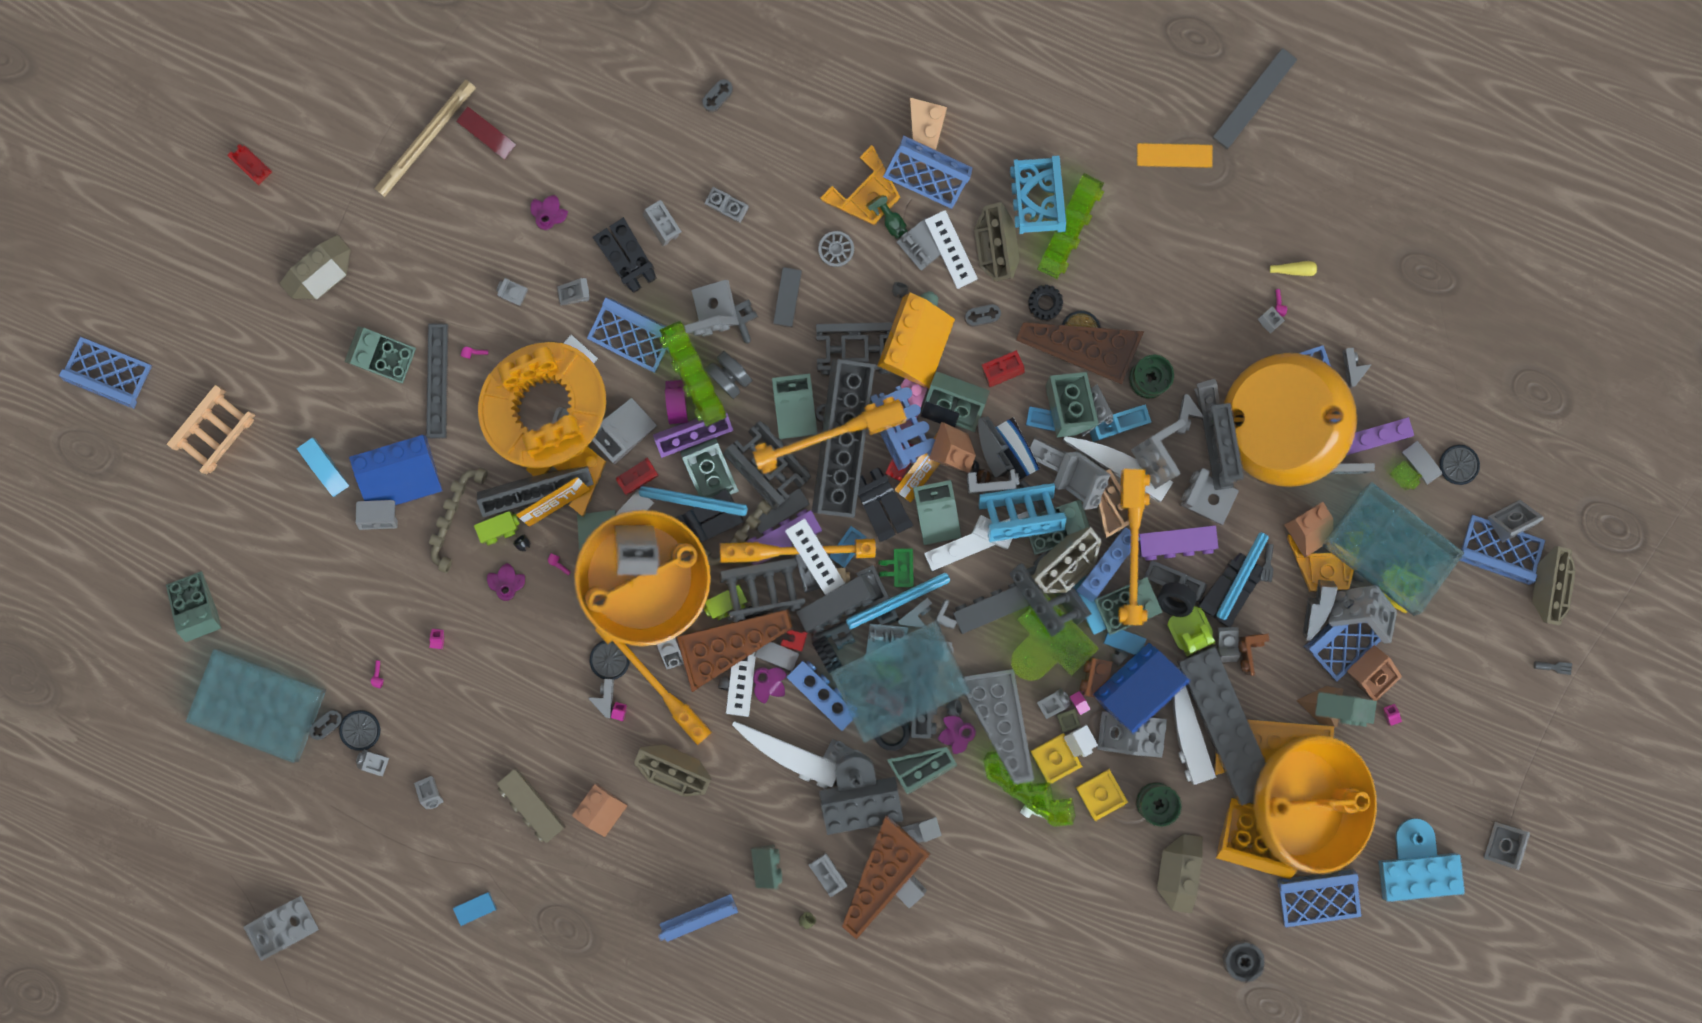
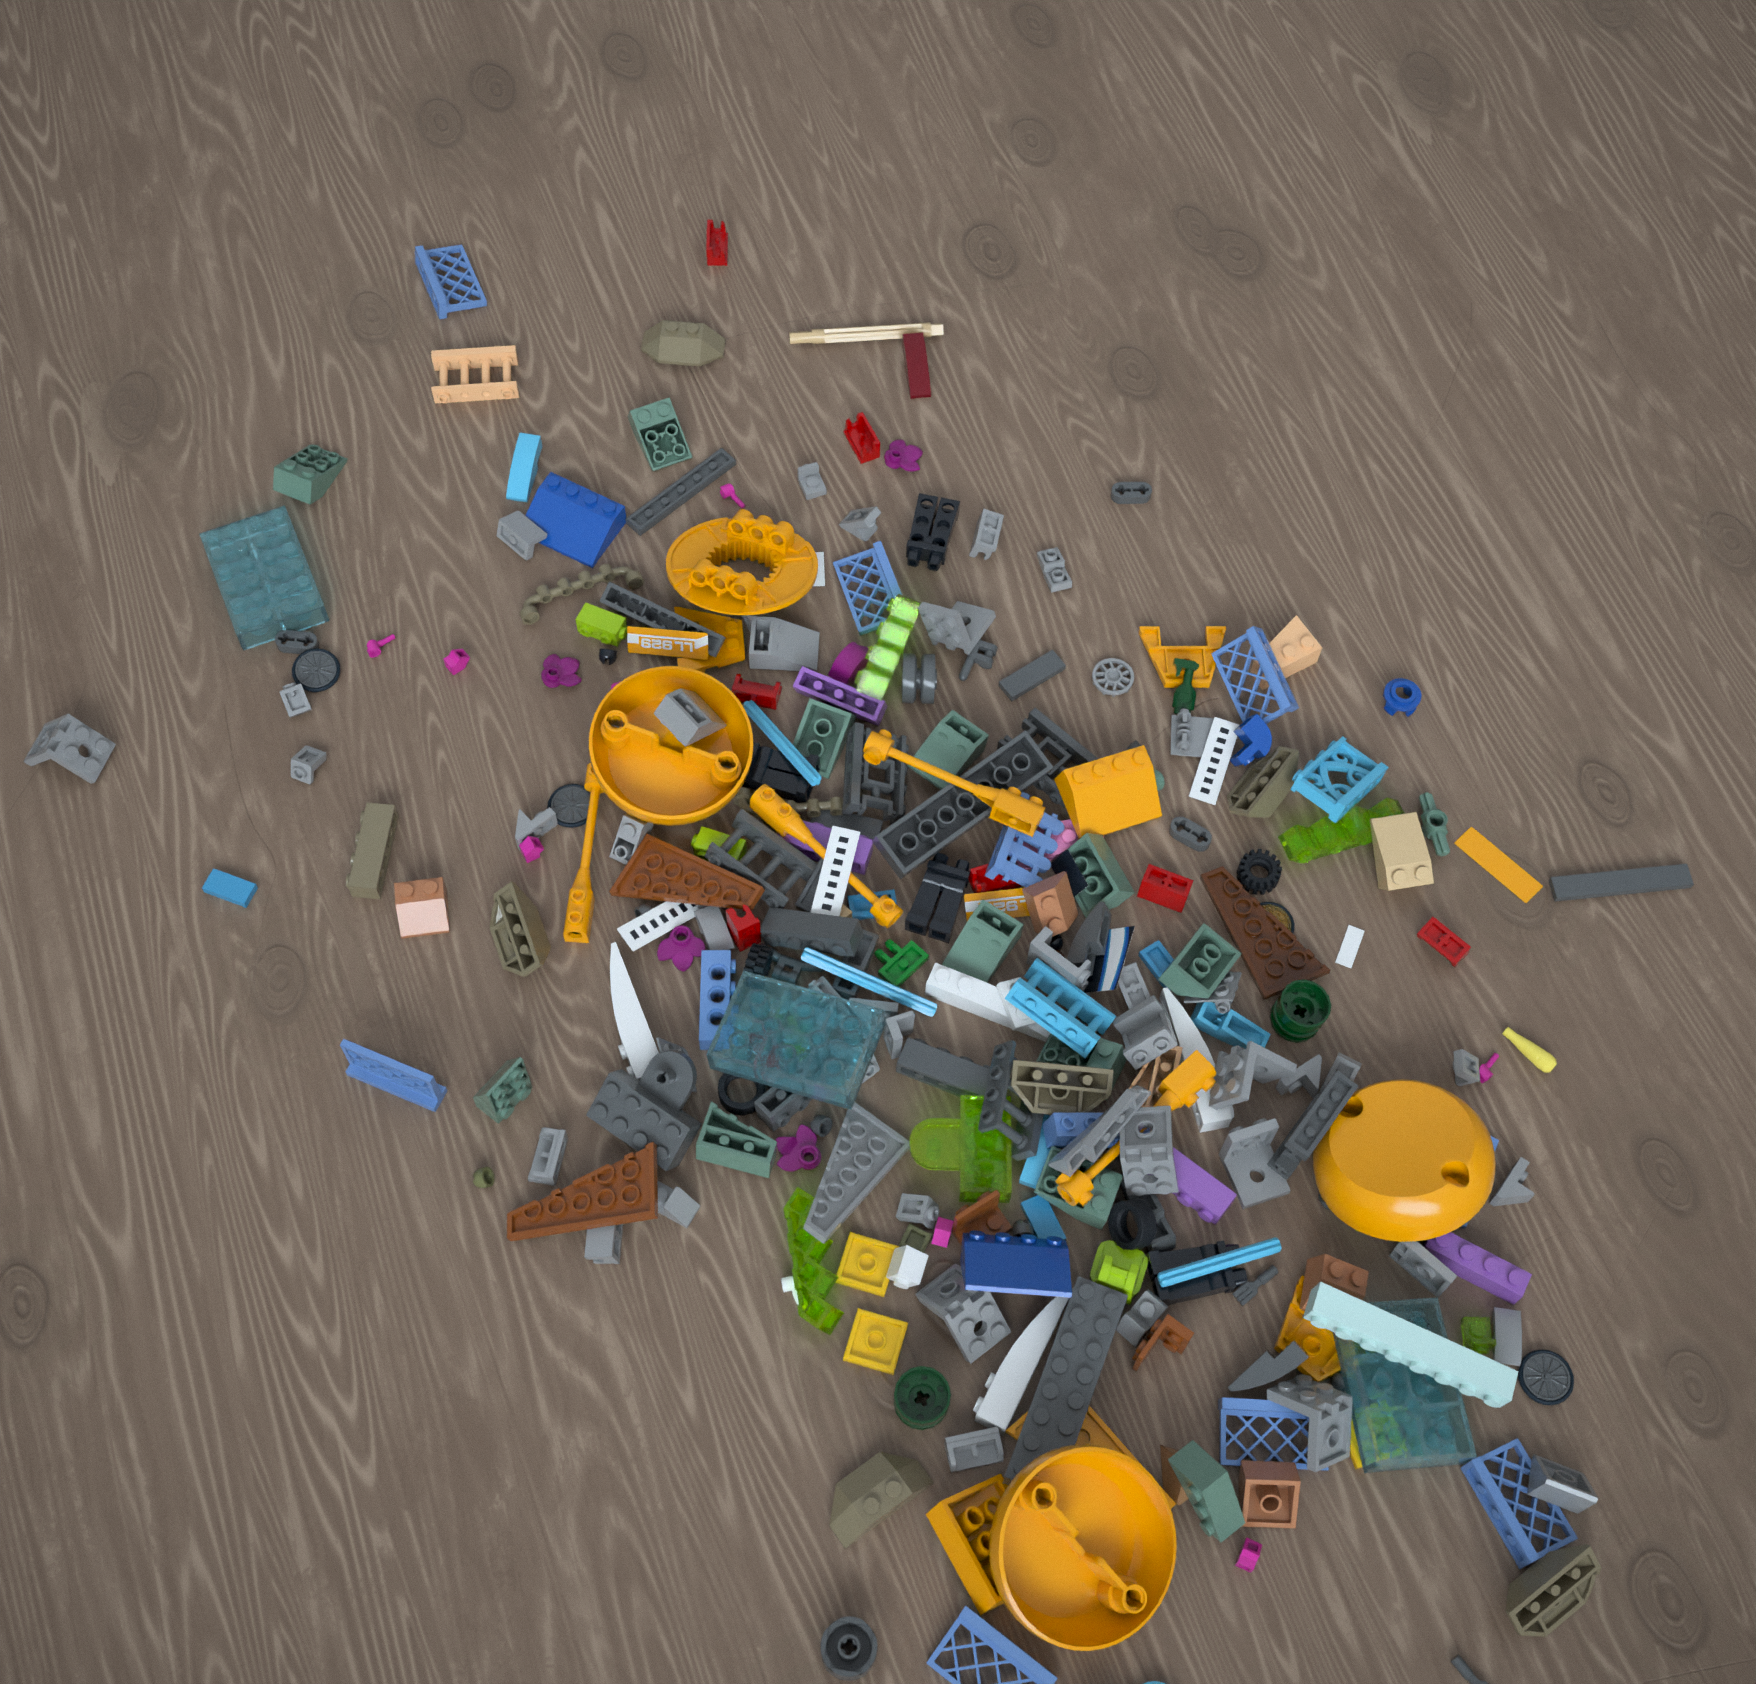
camera: 40 degrees right, 25 degrees down
(510, 227) = (862, 439): none -> red hinge
(966, 214) = (1256, 740): none -> blue brick
(1021, 102) = (1395, 703): none -> blue piece
(1108, 161) = (1434, 815): none -> sand green axle
(1118, 212) = (1400, 852): none -> tan slope
(1118, 571) = (1100, 1133): none -> light grey wedge
(1138, 298) = (1349, 946): none -> white sticker
(1157, 558) = (1148, 1153): none -> light grey bracket
(1190, 247) = (1444, 941): none -> red hinge
(1207, 800) = (974, 1449): none -> light grey hinge
(1383, 529) = (1410, 1345): none -> light aqua brick

